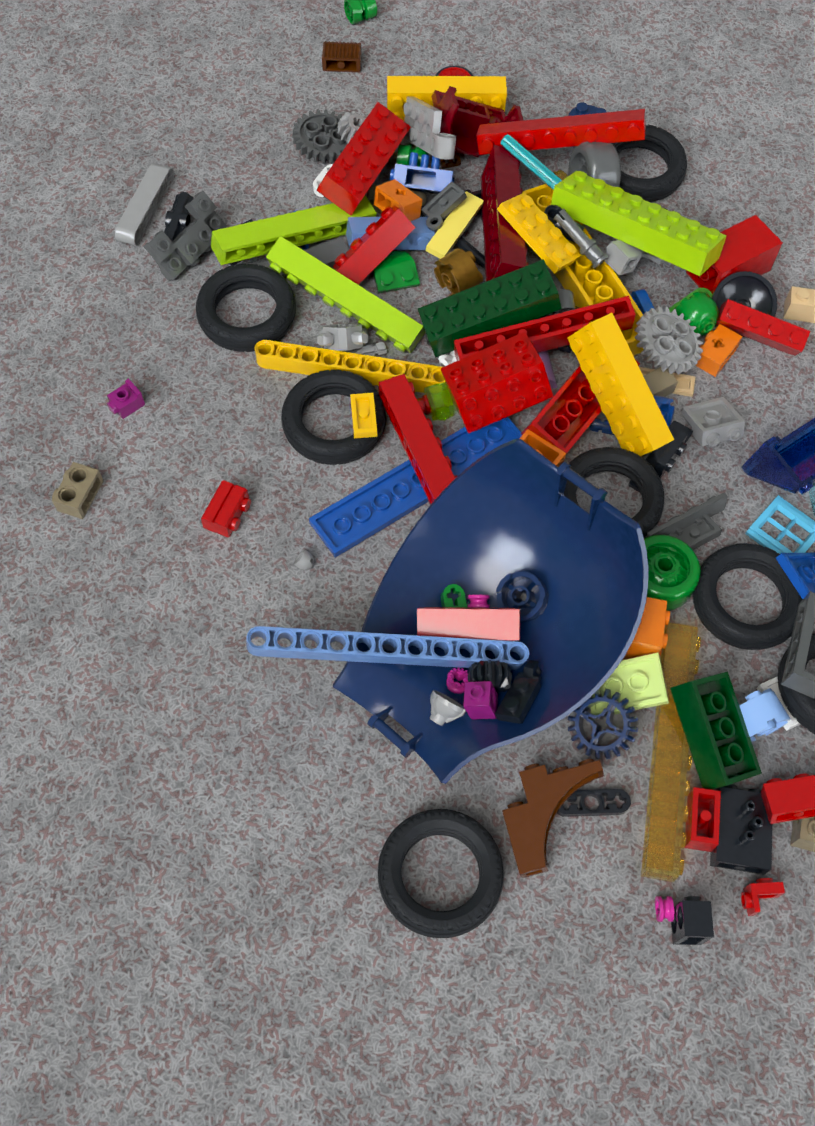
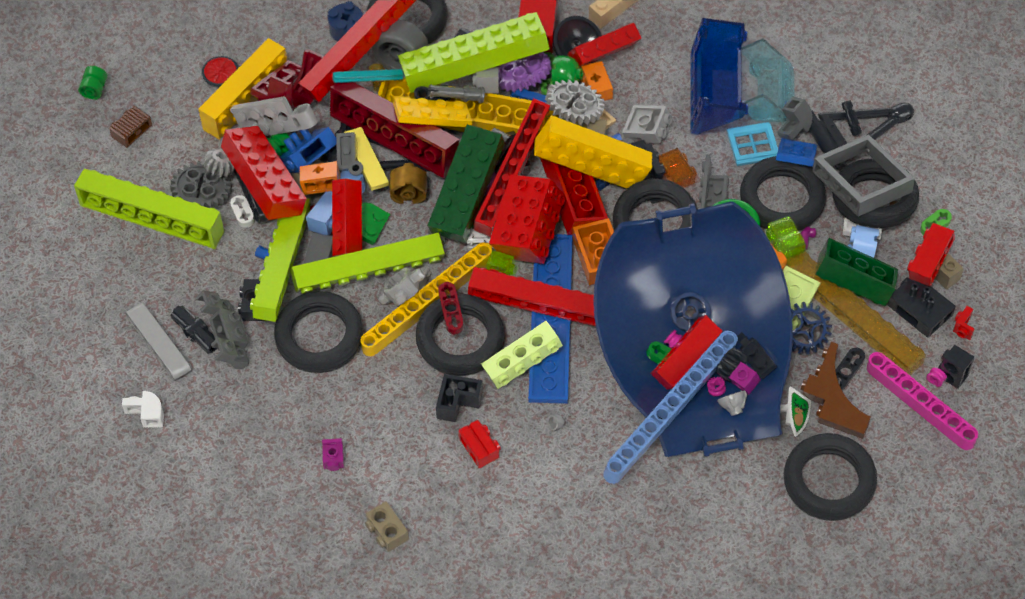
camera: 50 degrees left, 5 degrees down
(71, 239) = (148, 406): none -> white brick
(262, 452) = (457, 392): none -> black brick
(268, 115) = (149, 208): none -> lime brick
(348, 377) = (453, 300): none -> dark red beam
(349, 479) = (512, 354): none -> yellowish green brick
(363, 415) = (484, 312): yellow plate -> none
(494, 783) = (797, 411): none -> shield
(613, 924) = (925, 409): none -> dark pink beam
(653, 280) = (524, 72): none -> medium lavender gear
(686, 479) = (677, 168): none -> clear orange brick
(692, 630) = (786, 237): none -> clear neon green brick
(703, 819) = (902, 318): red brick -> none
(722, 651) = (806, 233): none -> magenta arm

